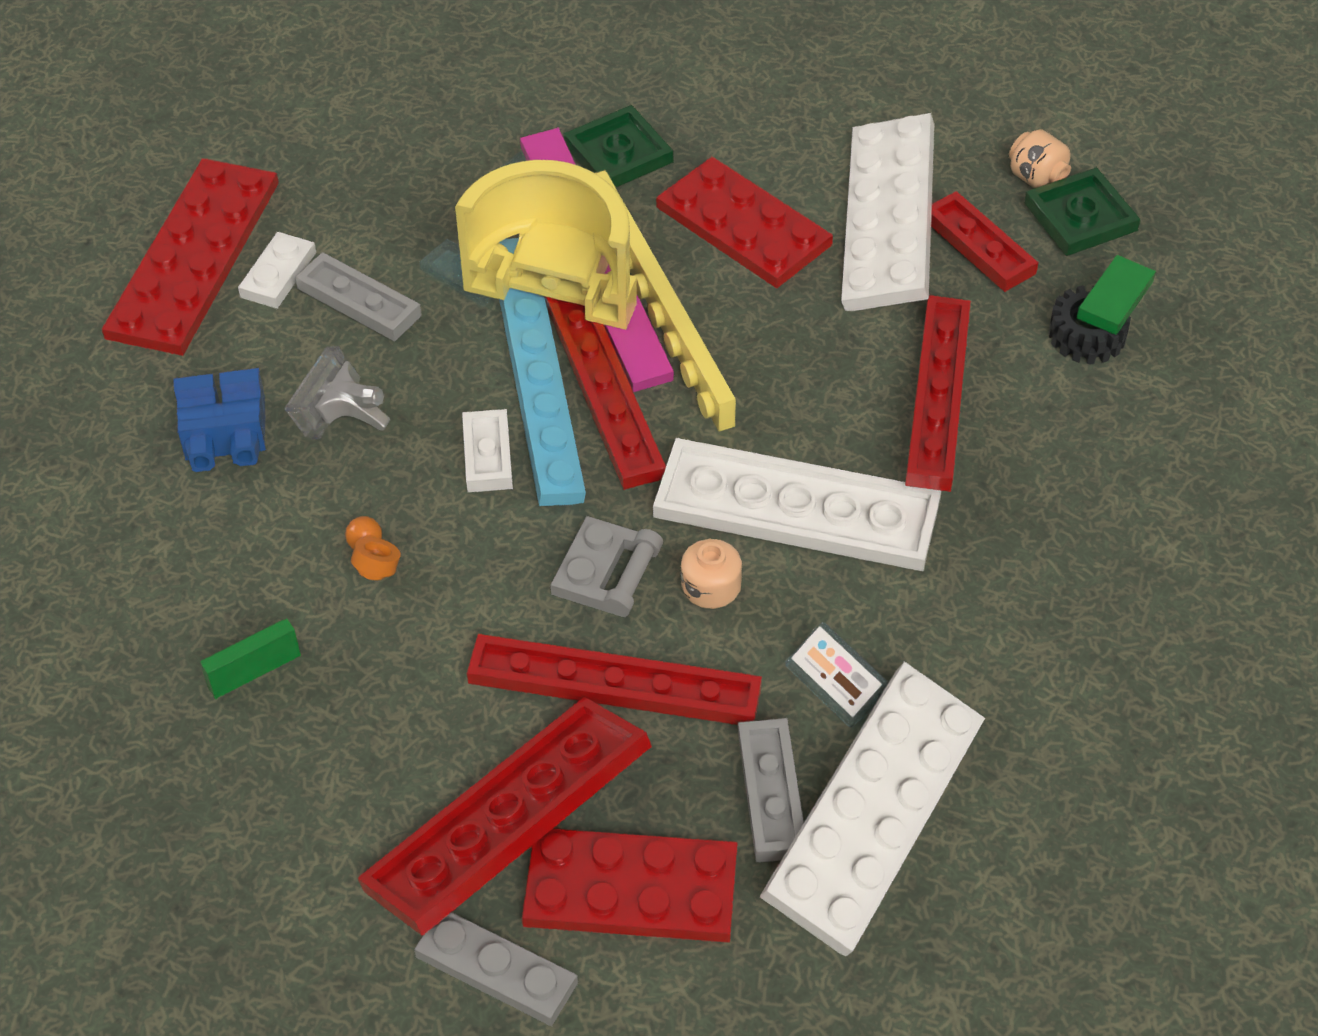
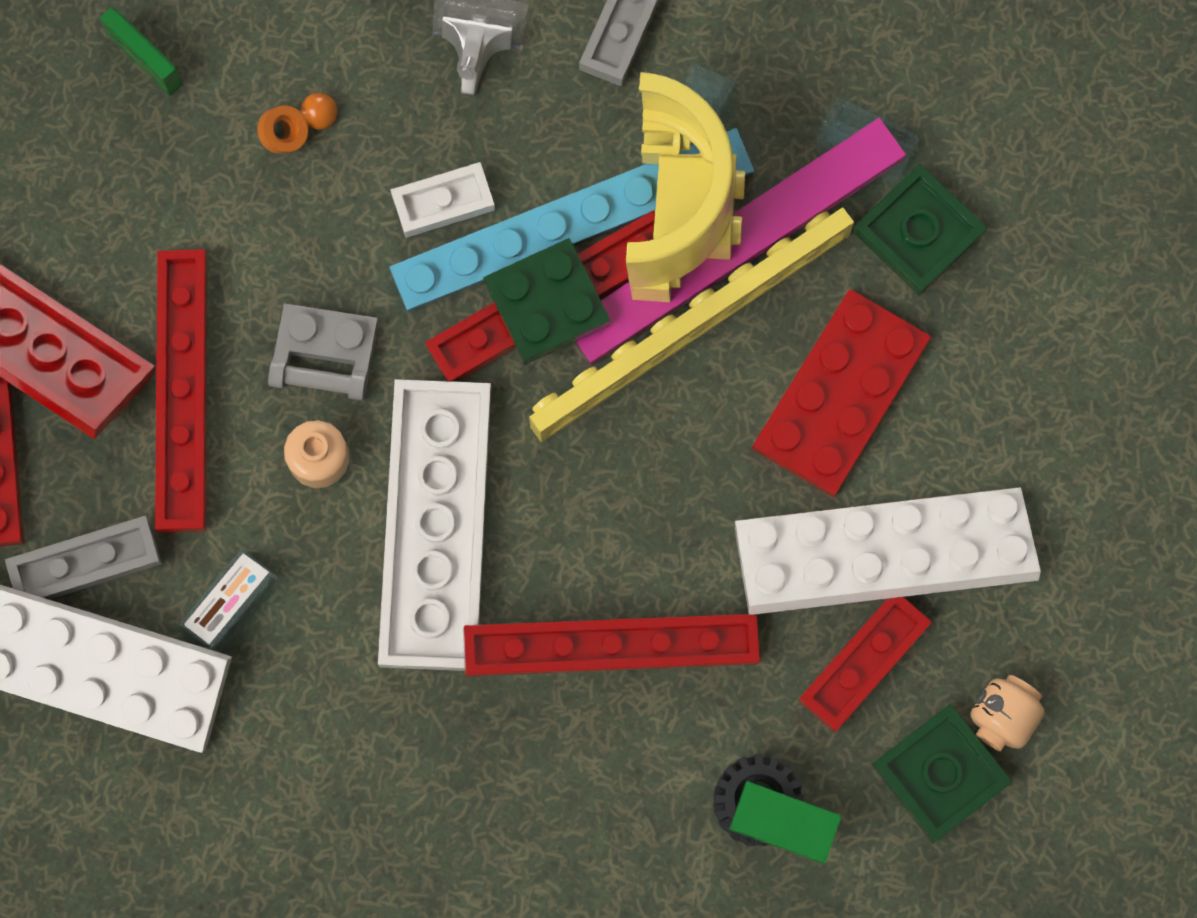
camera: 75 degrees right, 25 degrees up
(612, 381) = (546, 301): none -> dark green plate

